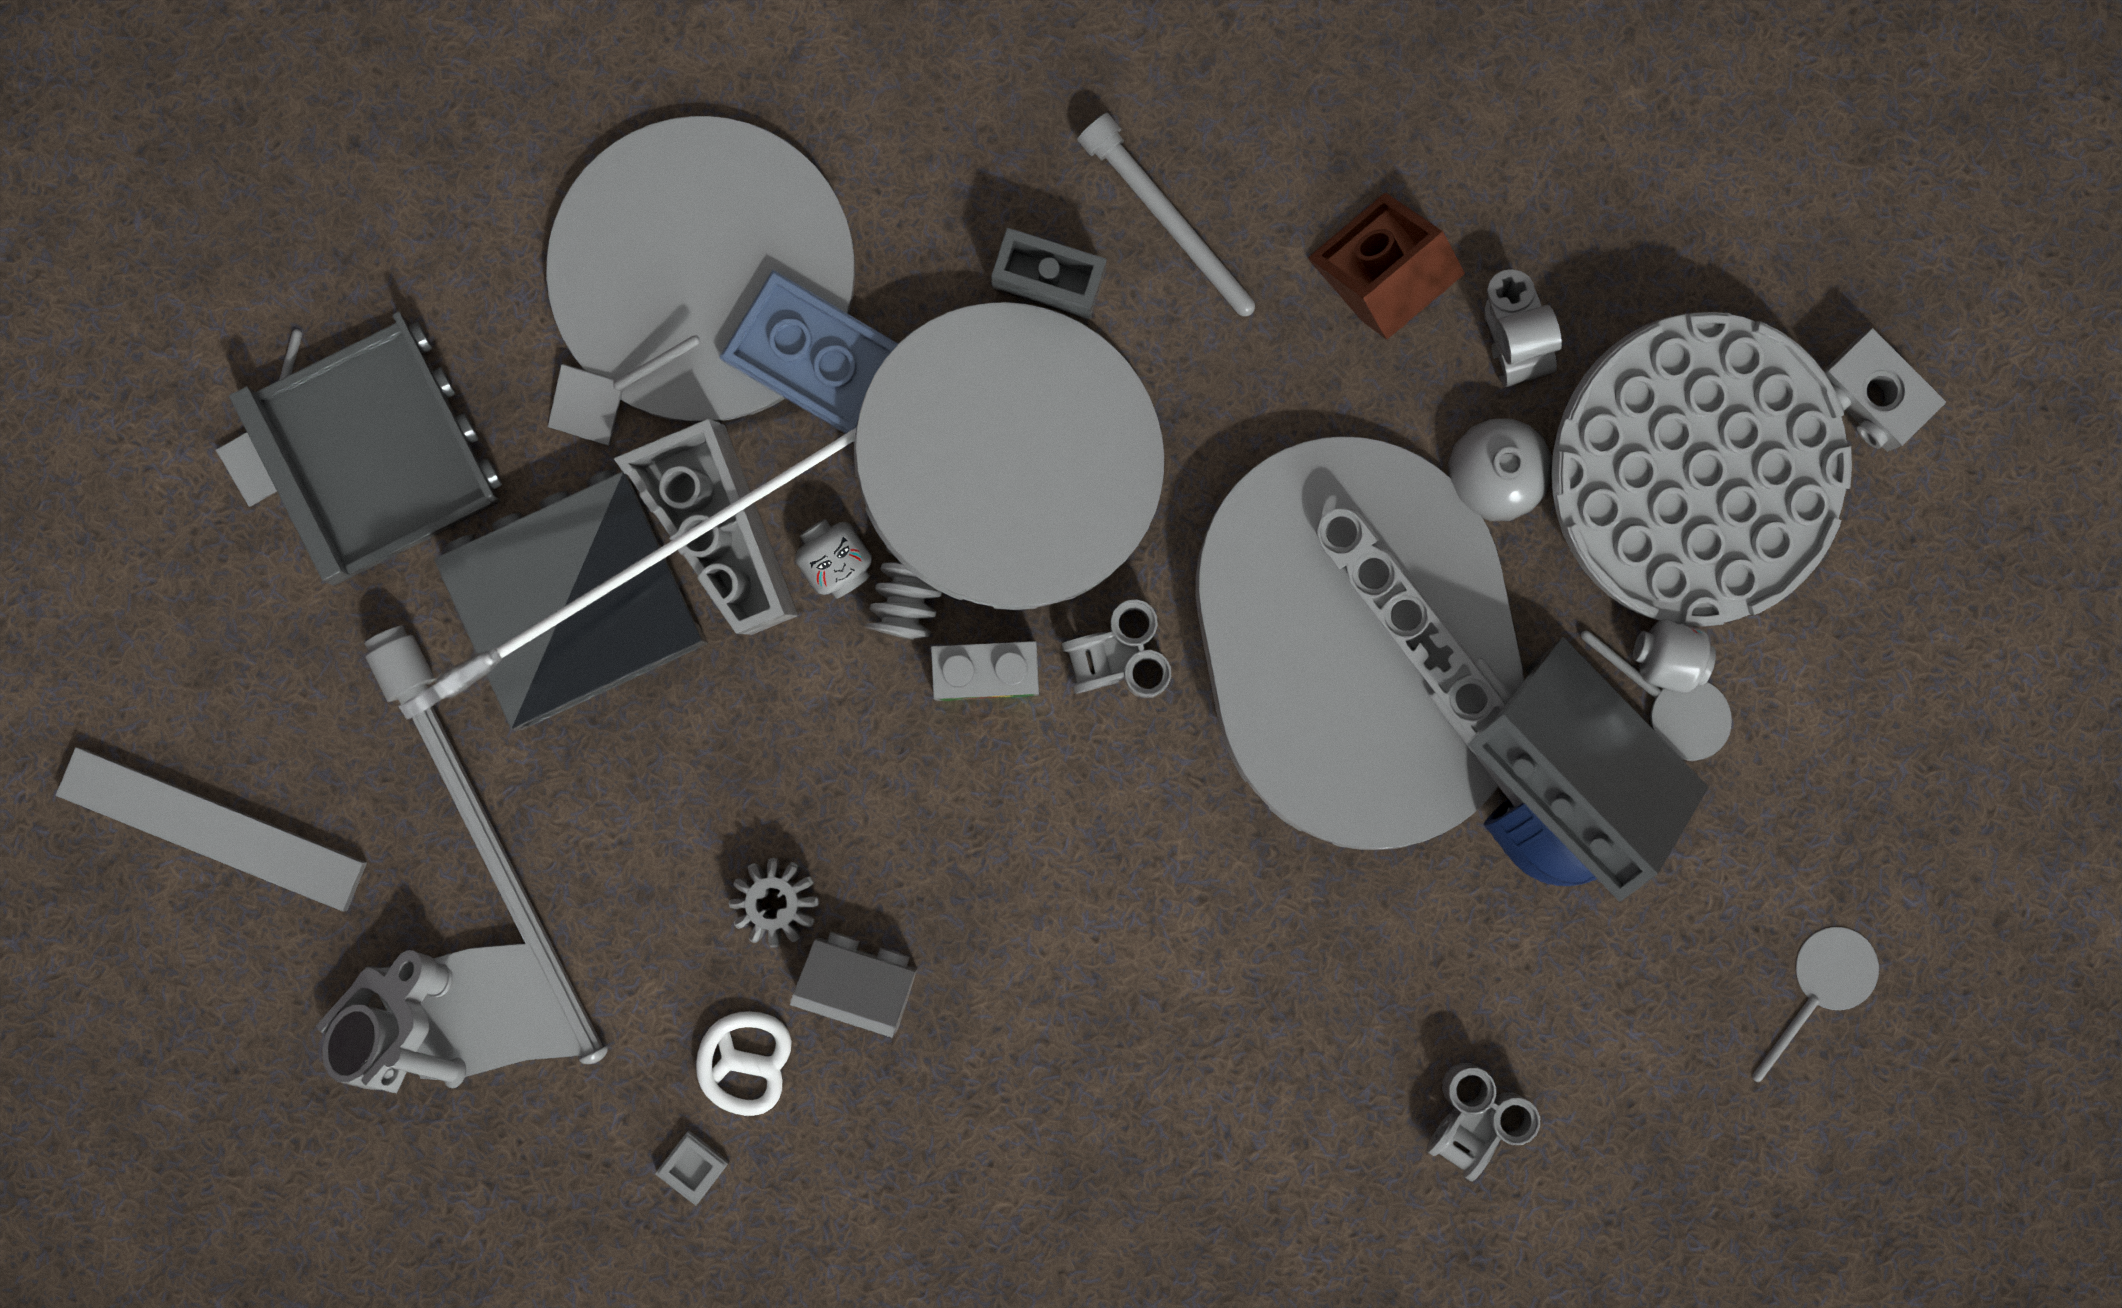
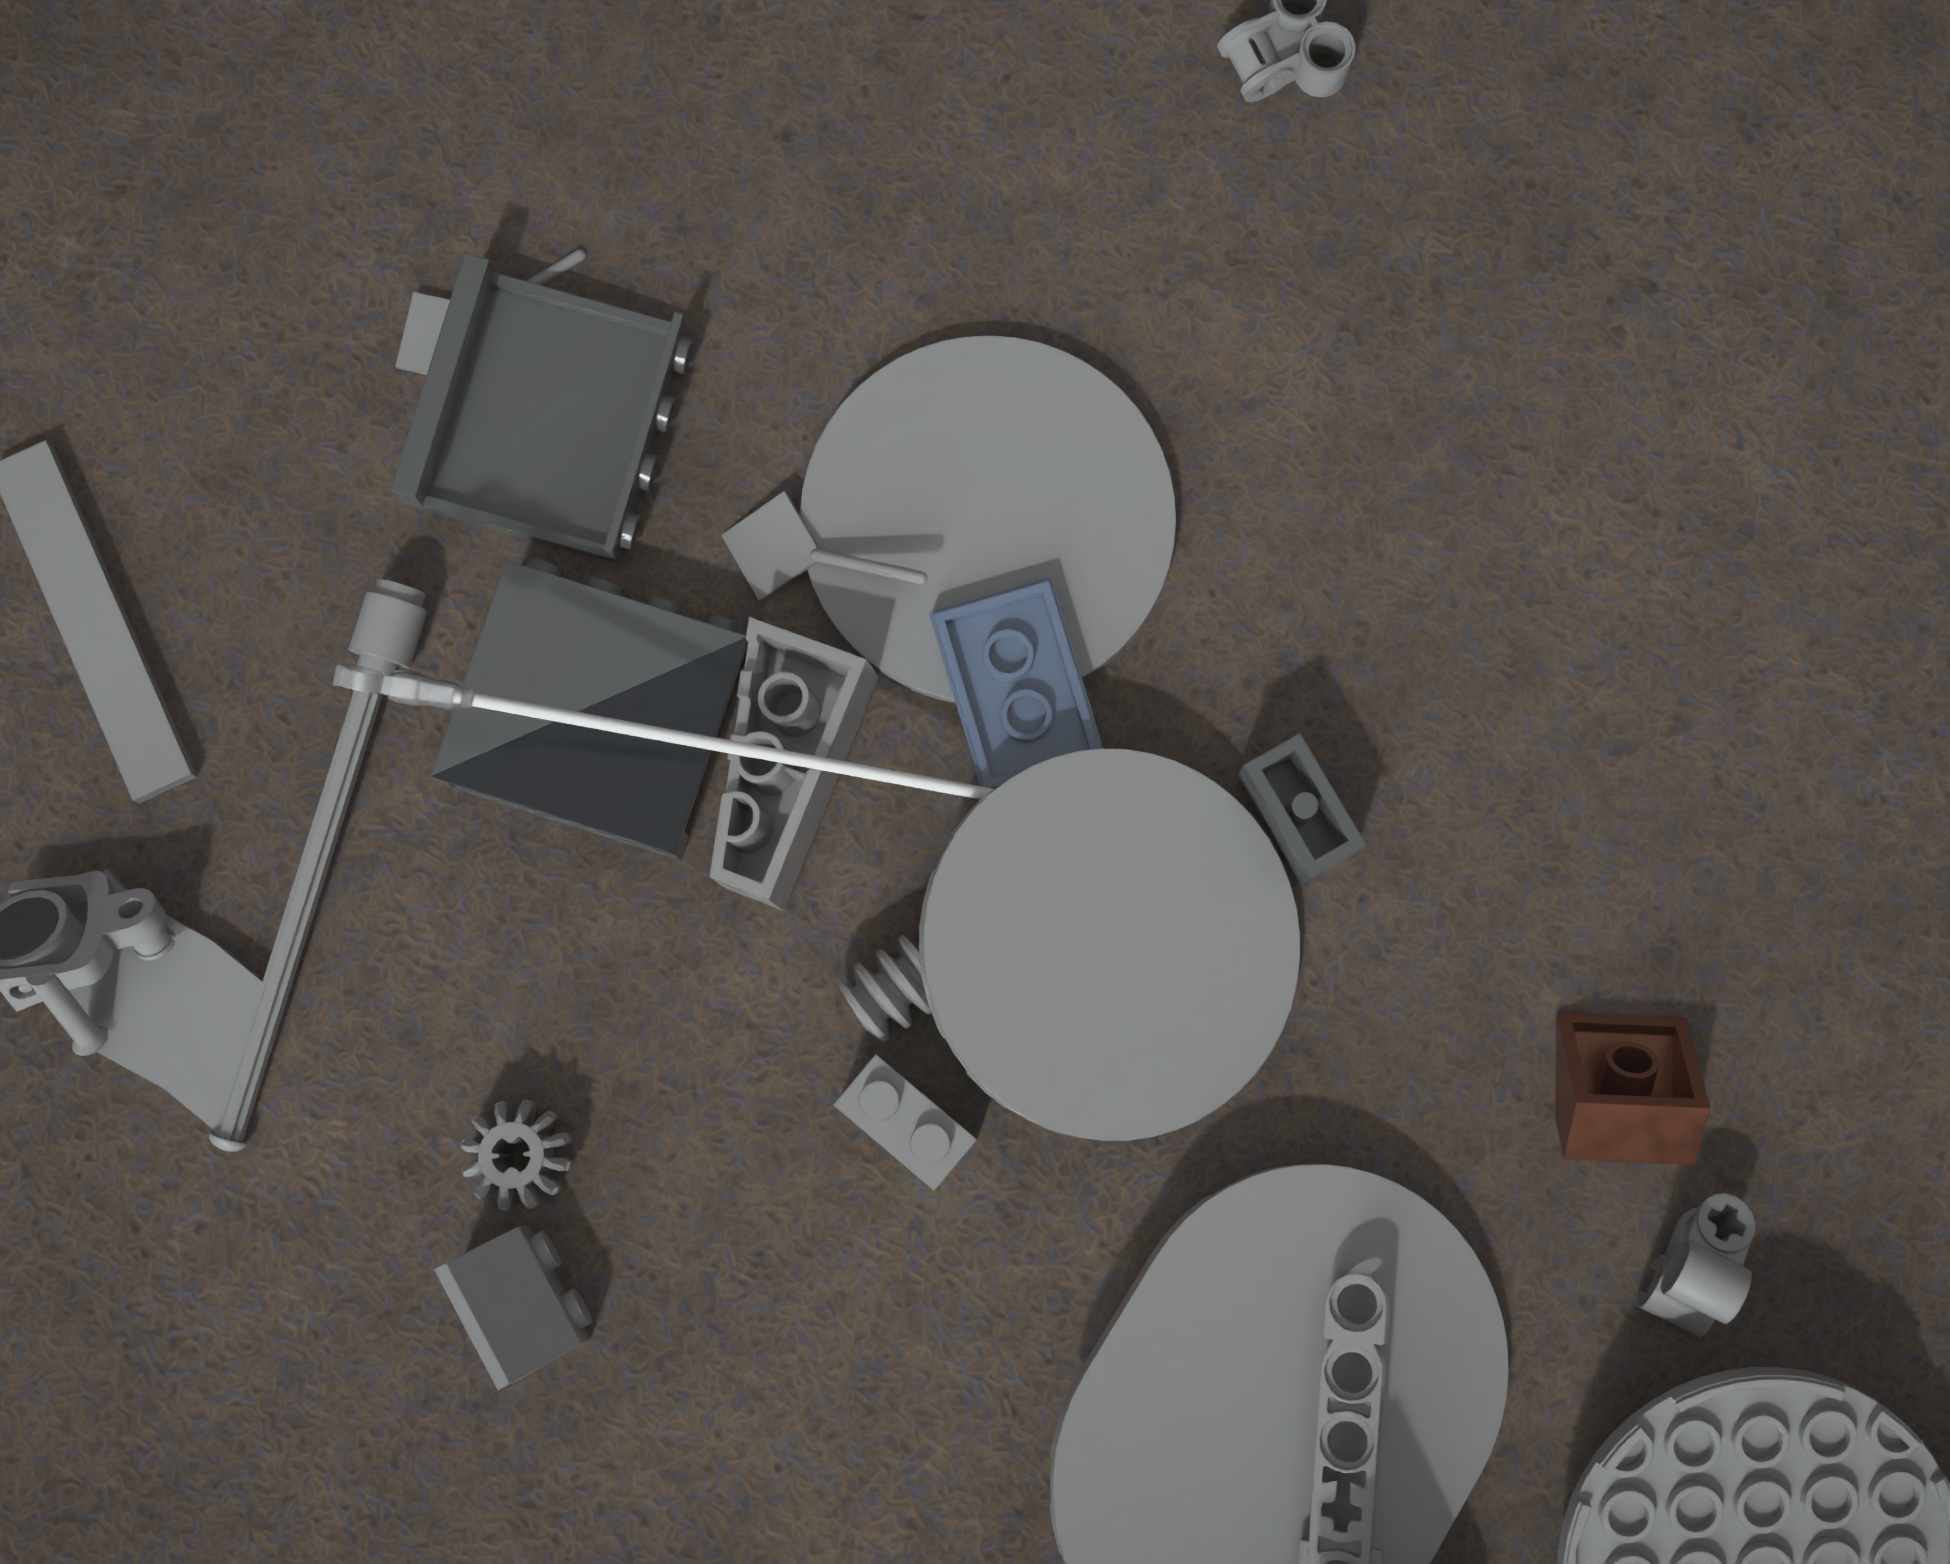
camera: 45 degrees right, 5 degrees down
(692, 1167) = (216, 1330): light grey tile -> none
(742, 1062) = (352, 1275): white piece -> none
(833, 558) = (863, 888): light grey head -> none
(1105, 141) = (1463, 736): light grey piece -> none
(1116, 655) = (1041, 1221): light grey piece -> none
(1501, 469) = (1564, 1381): light grey cylinder -> none

